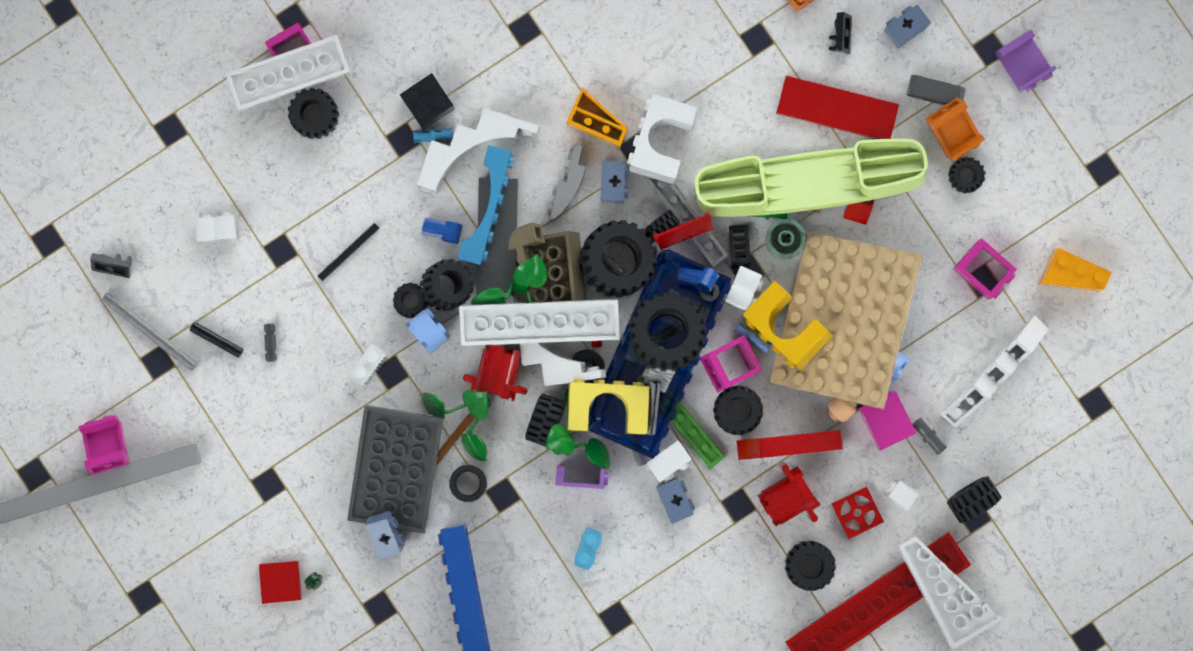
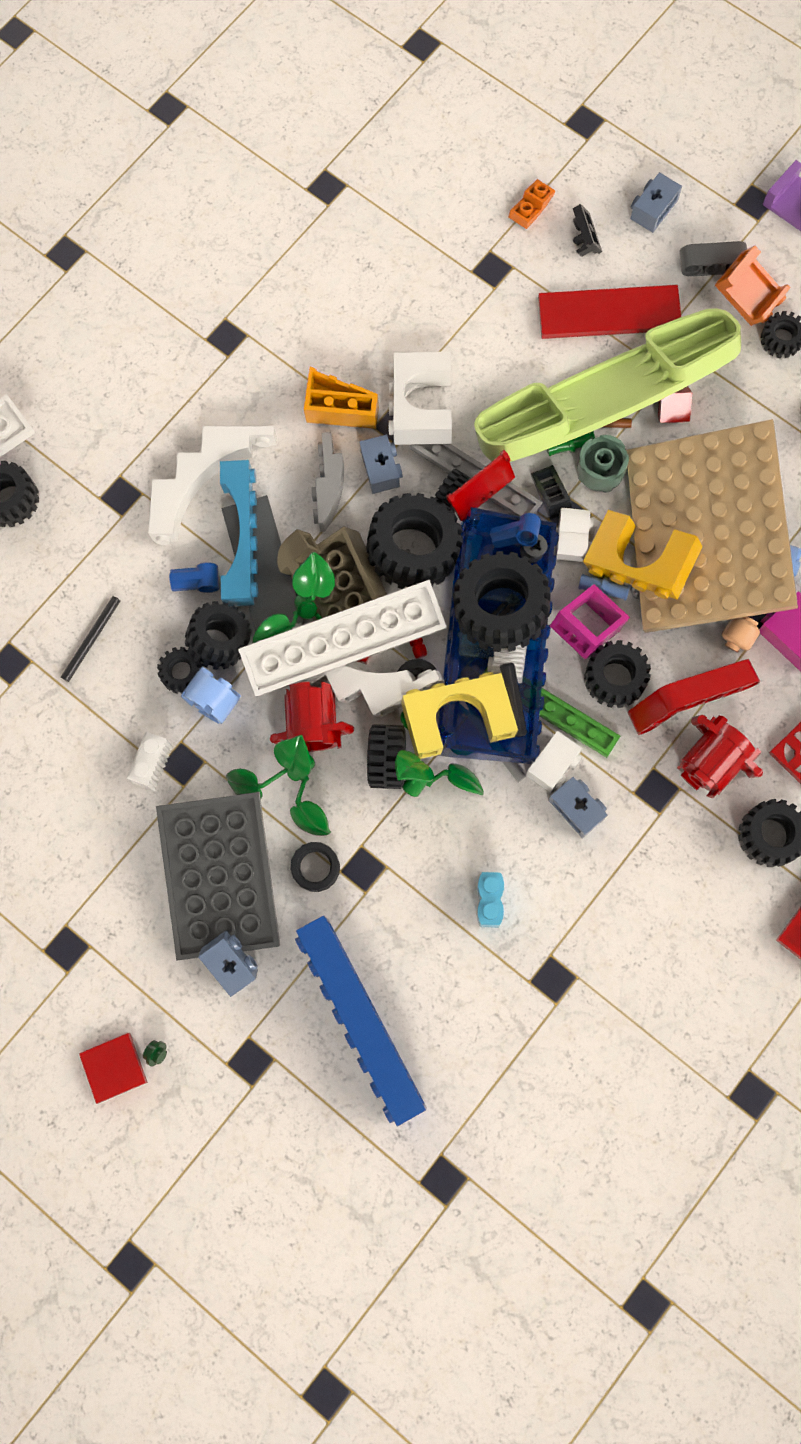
camera: 15 degrees left, 10 degrees down
(270, 343) = (23, 773): dark grey axle -> none
(427, 101) = (136, 441): black brick -> none
(433, 134) = (145, 480): dark azure pin -> none
(454, 437) = (282, 816): dark orange bar -> none
(560, 478) = (455, 822): medium lavender panel -> none

